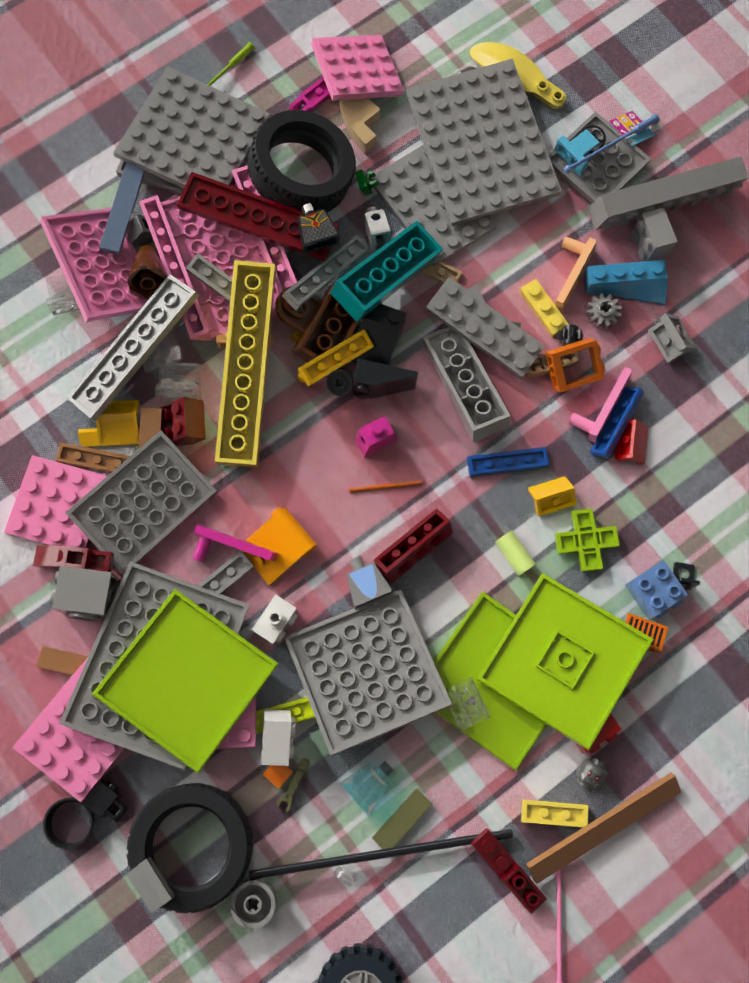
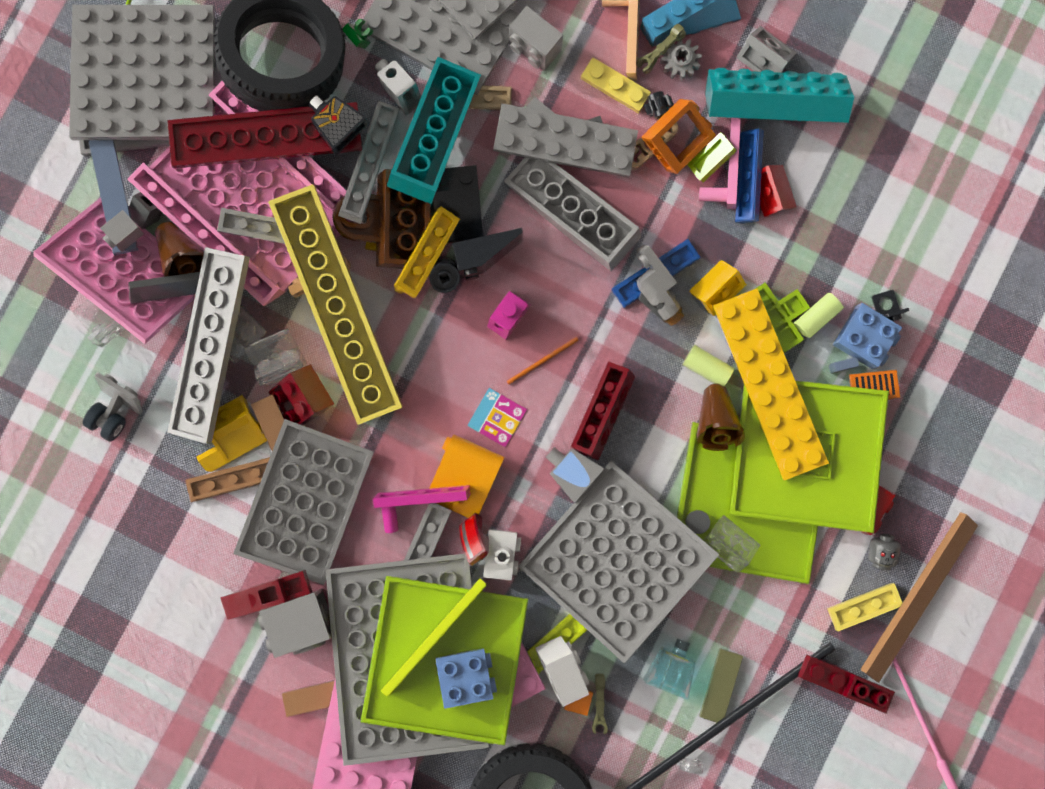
camera: 25 degrees left, 10 degrees up
(27, 367) = (107, 417): none -> plate
(44, 498) = (204, 543): bright pink plate -> none
(113, 233) = (121, 231): none -> light grey brick
(121, 288) = (163, 287): none -> dark grey tile
(186, 654) = (433, 638): none -> neon yellow tile
(194, 698) = (465, 678): none -> medium blue brick
(259, 596) = (473, 541): none -> slope
(327, 513) = (497, 417): none -> sticker
(448, 672) = (697, 521): none -> dark grey tile
(497, 244) = (535, 39): none -> light grey brick
(500, 471) = (656, 286): none -> light grey plate
(502, 598) = (718, 420): none -> reddish brown cone
(558, 590) = (770, 384): none -> yellow plate
(594, 393) = (712, 157): none -> tile
(609, 290) = (676, 34): none -> olive piece
(623, 554) = (818, 315): none -> yellowish green brick
(626, 604) = (843, 365): none -> sand blue tile
(668, 370) = (779, 95): none -> teal brick

